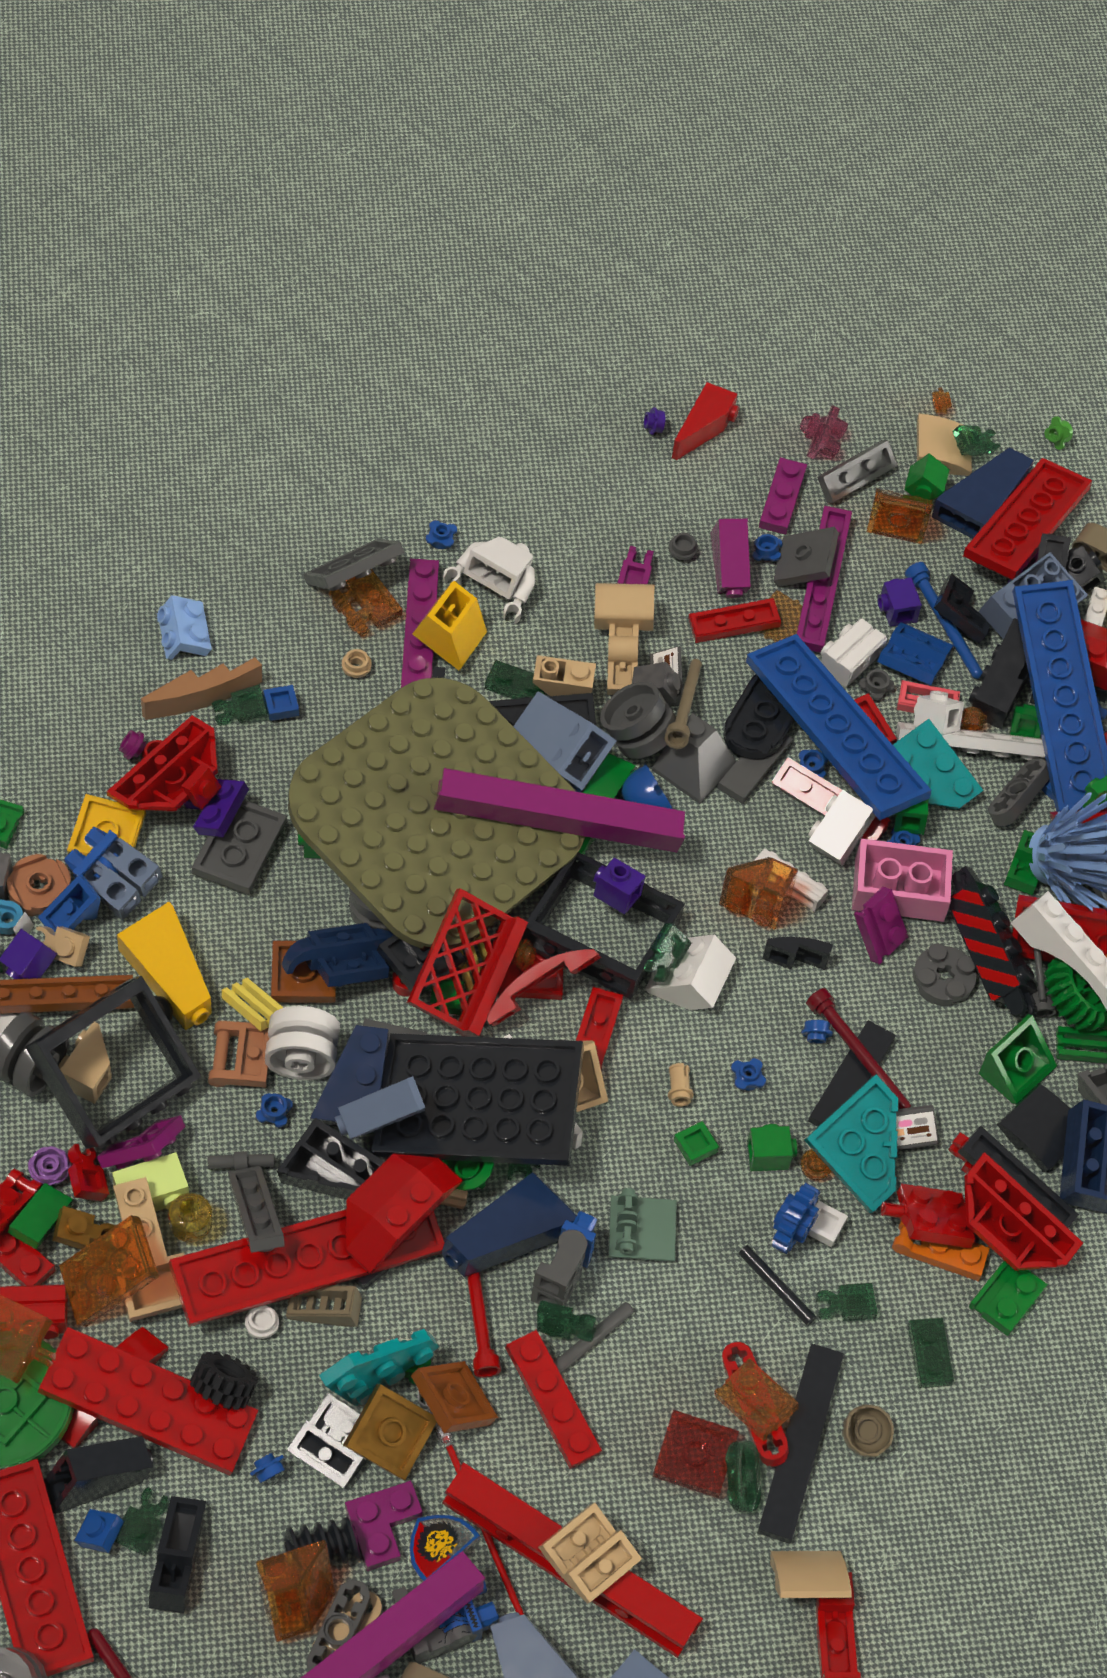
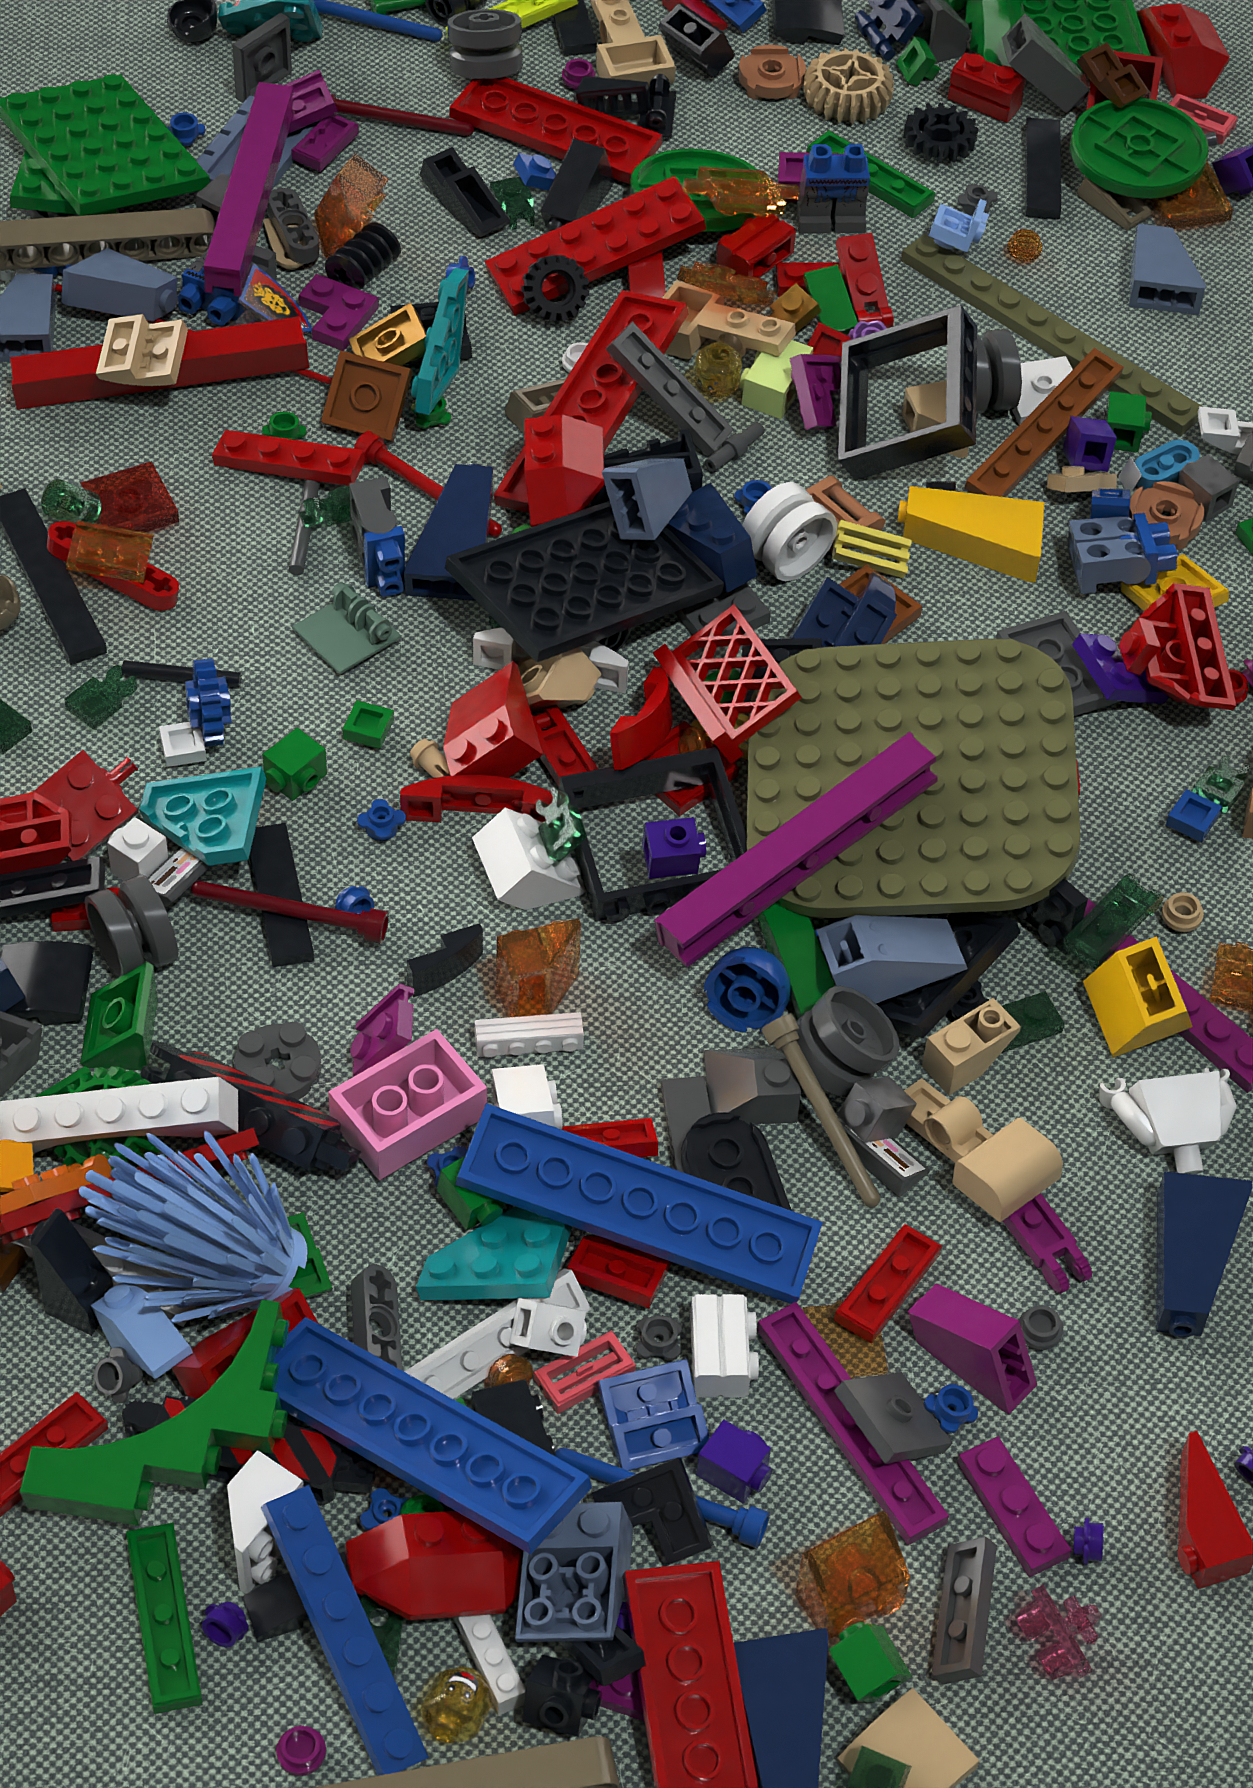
camera: 140 degrees right, 5 degrees down
(408, 669) = (1112, 921): none -> clear green plate
(532, 1424) = (284, 426): none -> green plate
(567, 515) = (1194, 1240): none -> dark blue slope
(634, 1063) = (492, 728): none -> red slope
(707, 1058) = (470, 793): none -> red slope
(767, 454) = (1089, 1541): none -> dark purple plate
(922, 1159) = (136, 850): none -> white brick
(969, 1096) = (131, 926): none -> dark grey wheel

